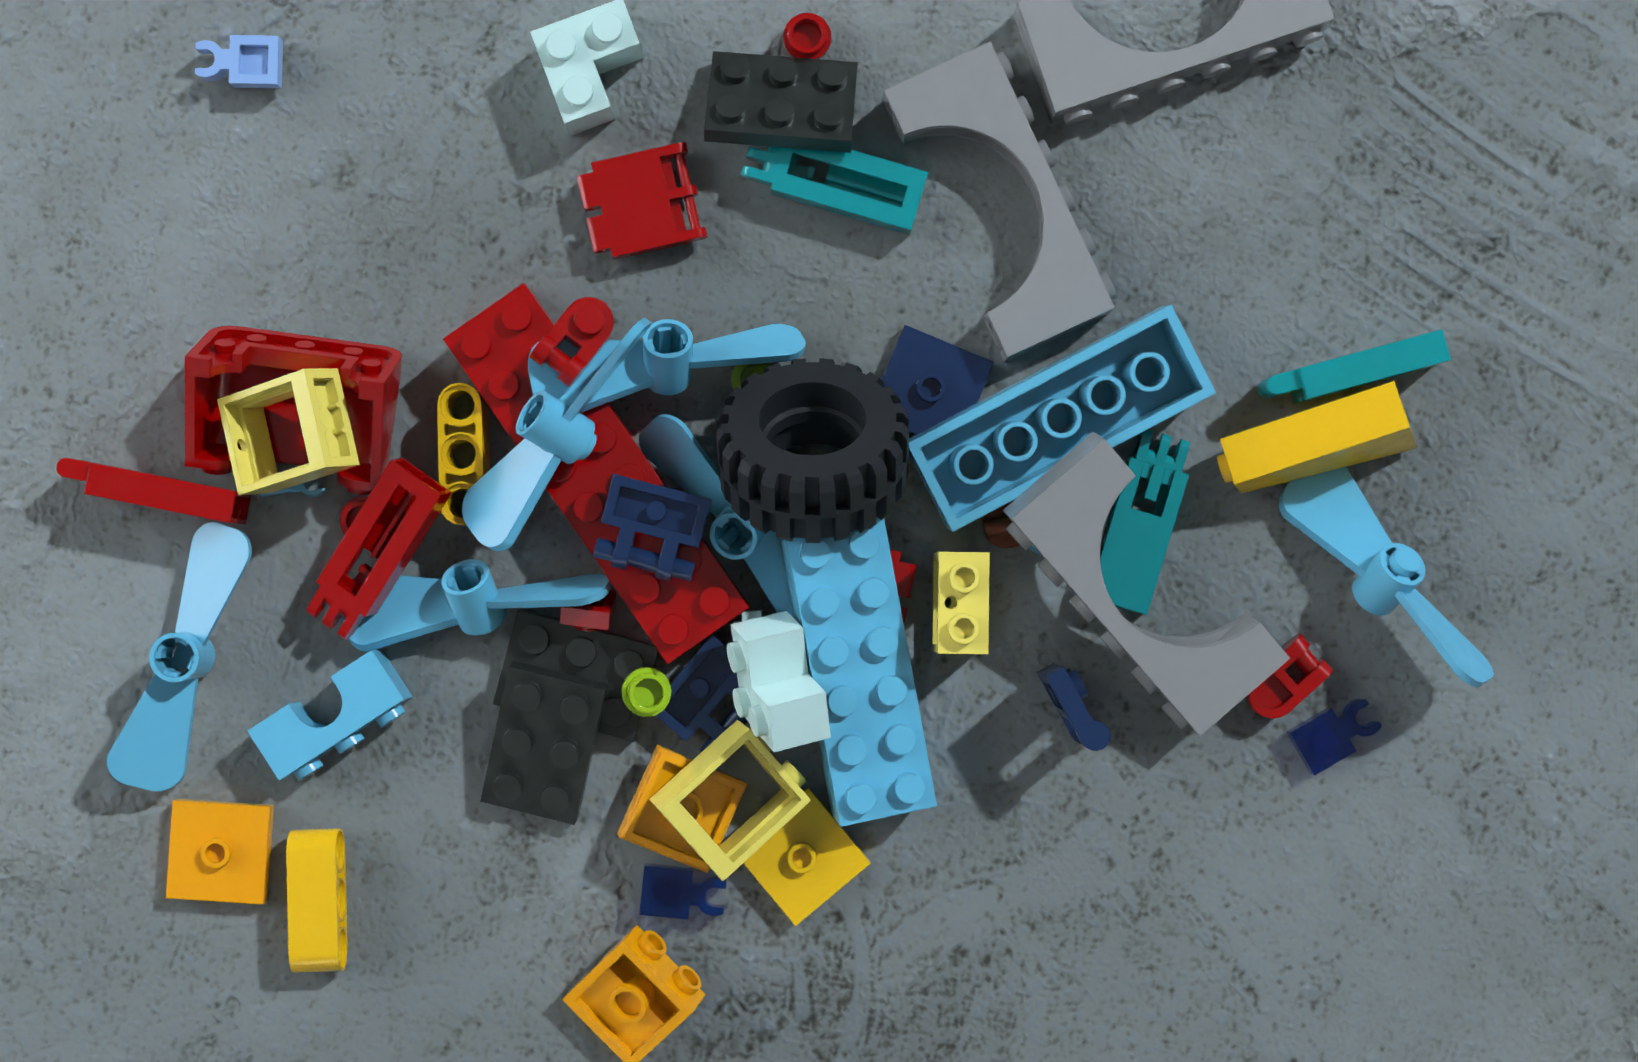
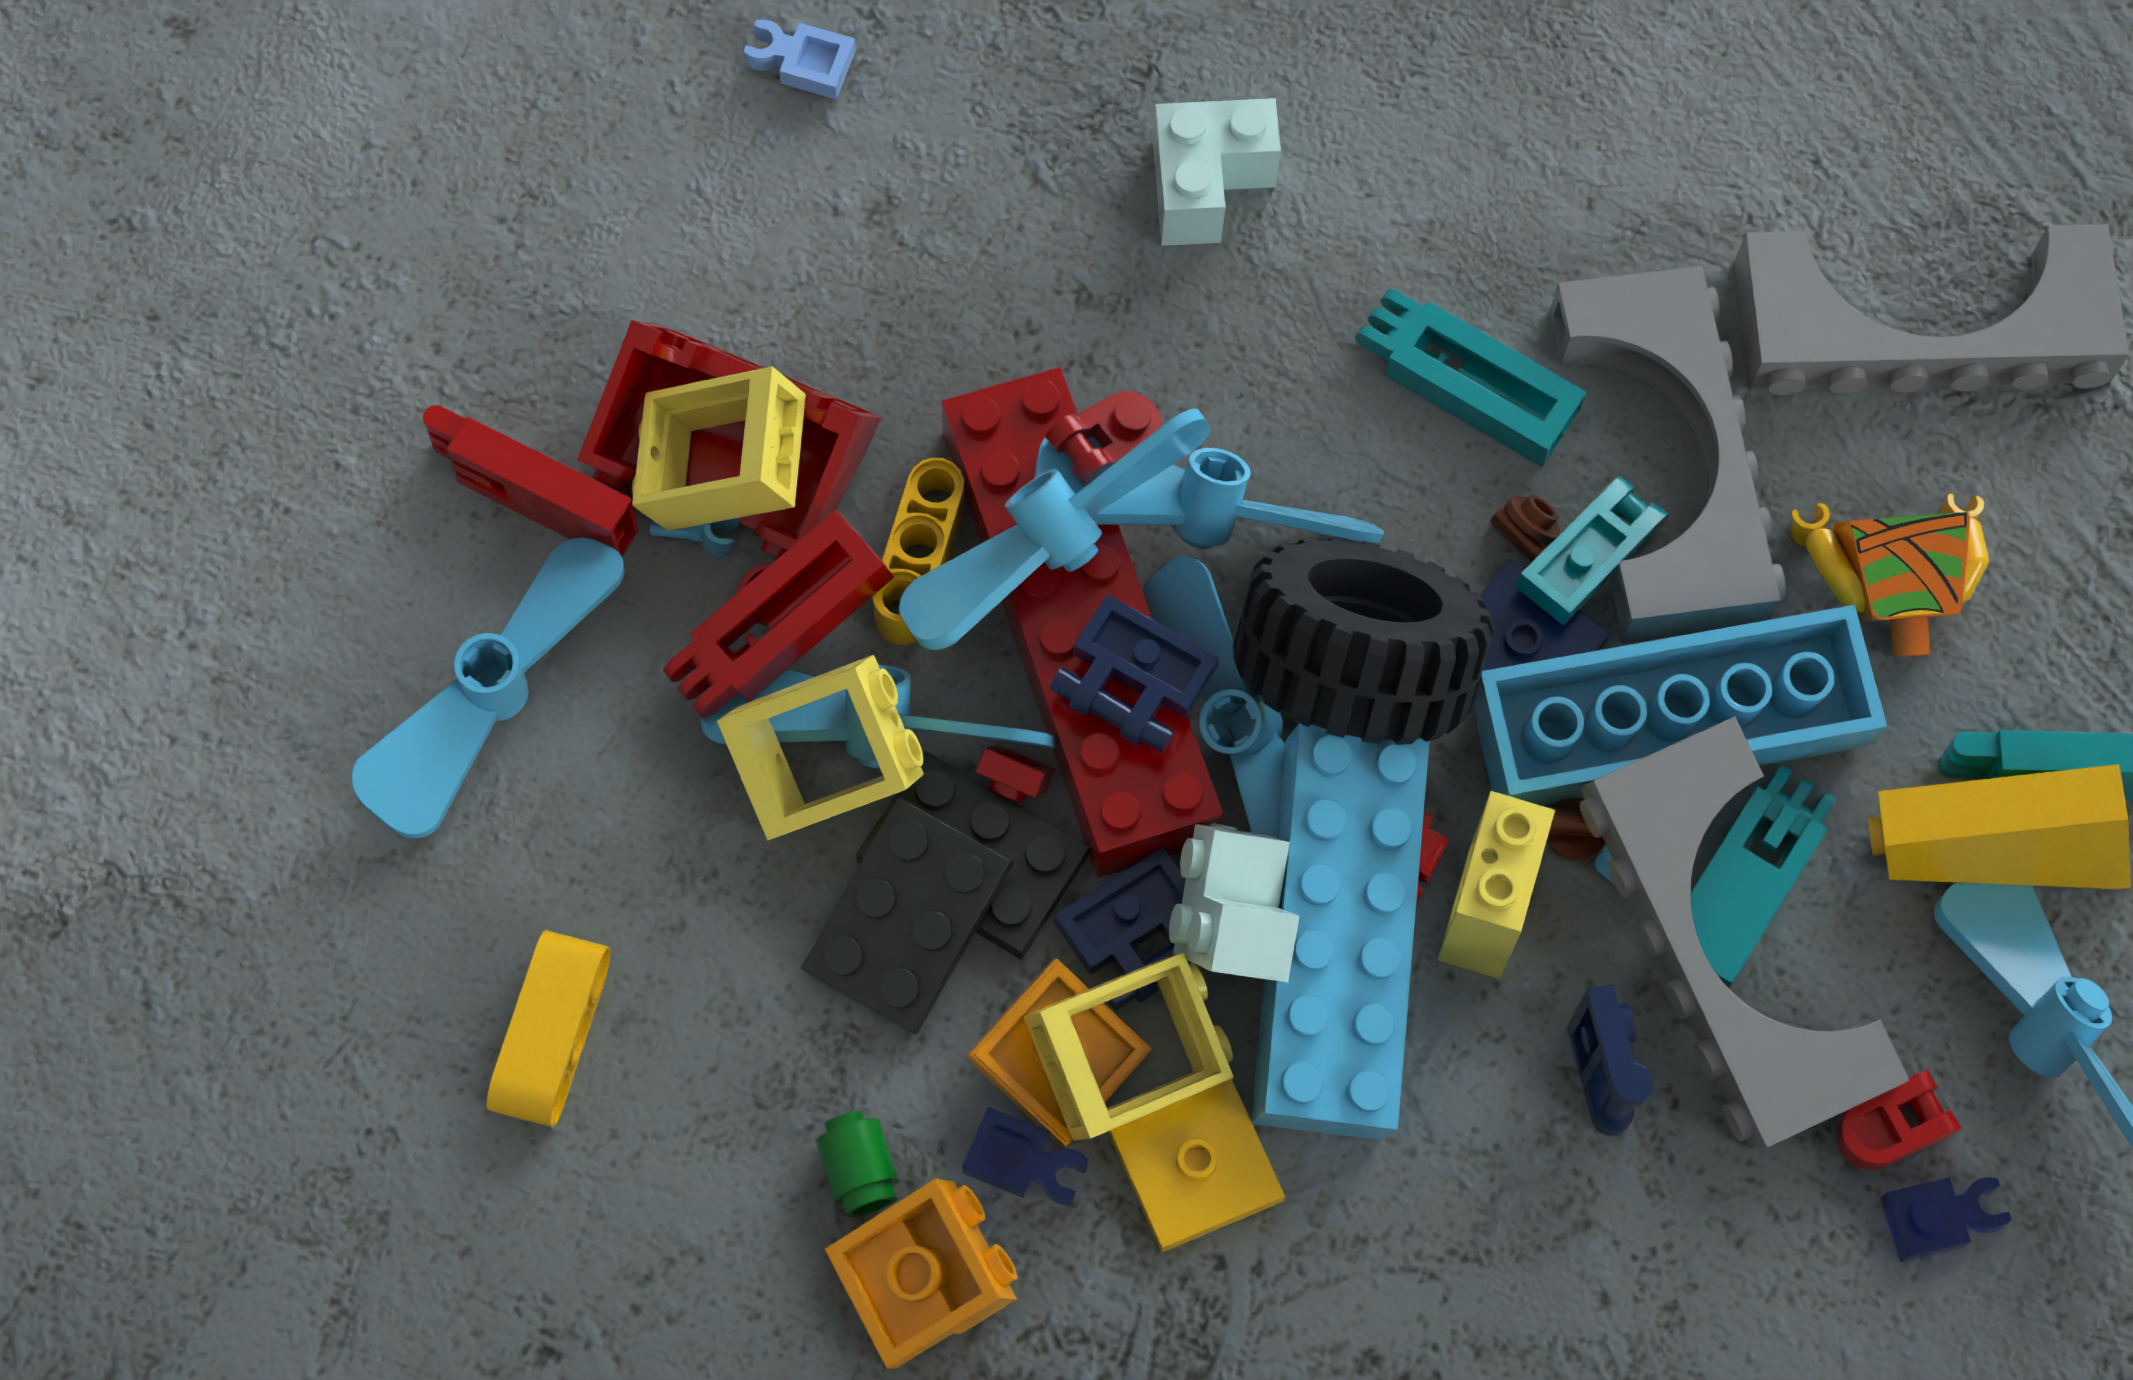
camera: 10 degrees right, 20 degrees down
(219, 851) = (445, 936): light orange plate -> none
(369, 694) = (599, 829): medium azure arch -> none
(412, 674) = (766, 768): none -> light yellow window
(566, 932) = (858, 1163): none -> green brick
(640, 202) = (1222, 334): red plate -> none
(646, 692) = (1059, 886): lime plate -> none
(781, 102) = (1429, 268): pearl dark grey plate -> none
(807, 36) = (1478, 213): red plate -> none
(912, 291) = (1527, 524): none -> copper plate
(963, 303) = (1590, 550): none -> teal plate
(1199, 246) = (1899, 566): none -> torso

